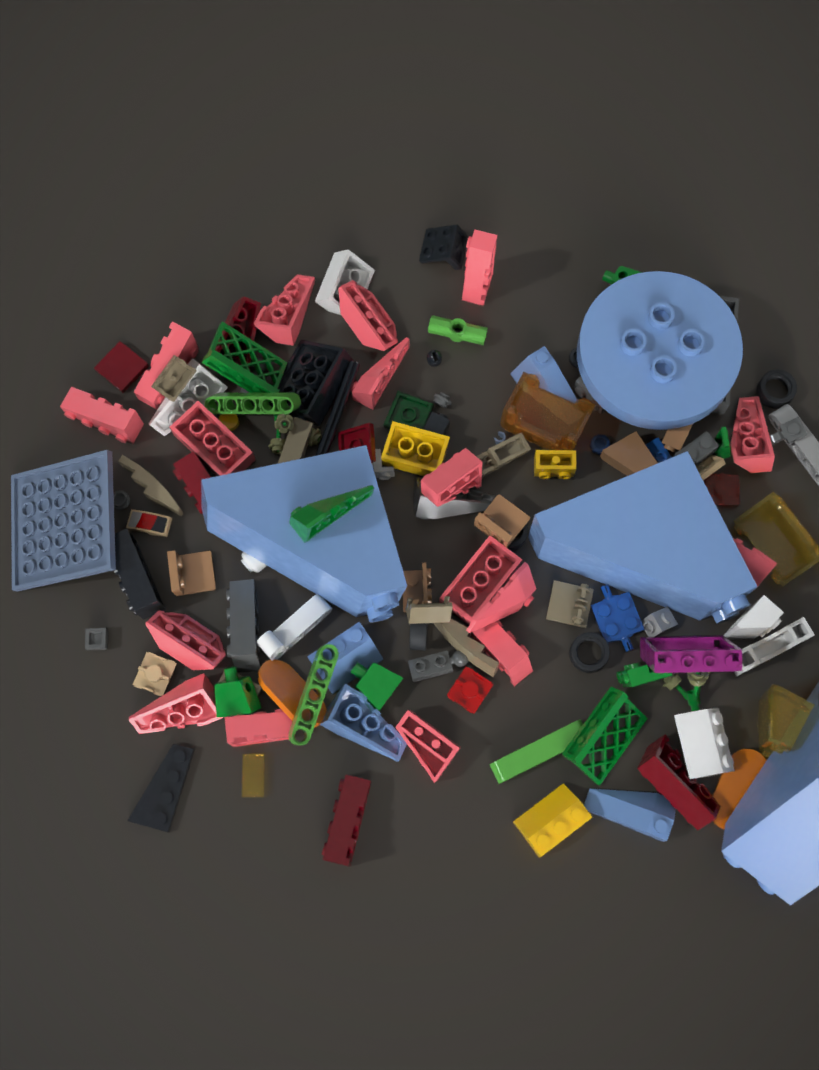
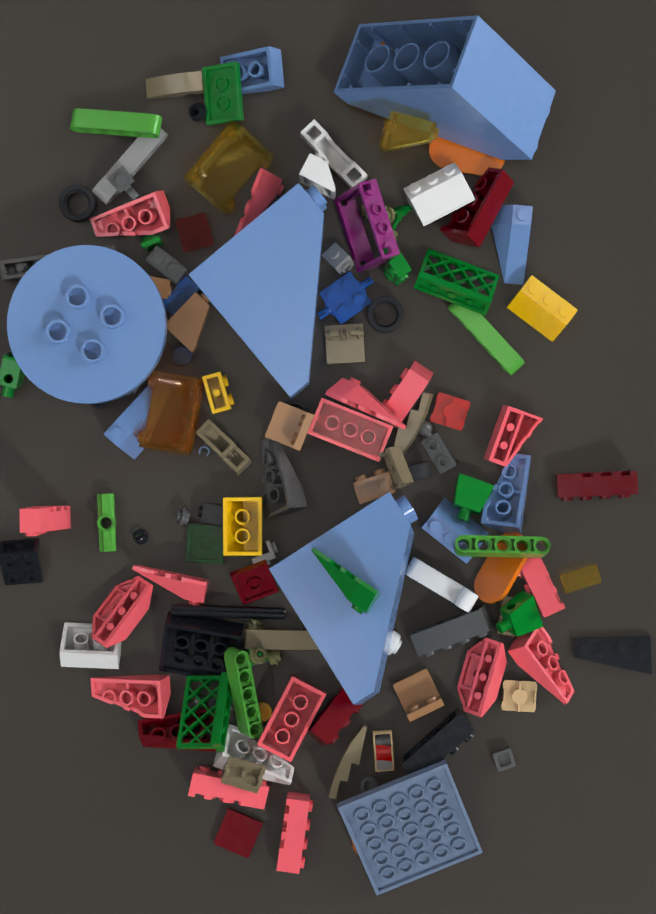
camera: 110 degrees left, 15 degrees up
(452, 478) = (264, 483): coral wedge -> none
(710, 466) = (181, 253): tan tile -> none

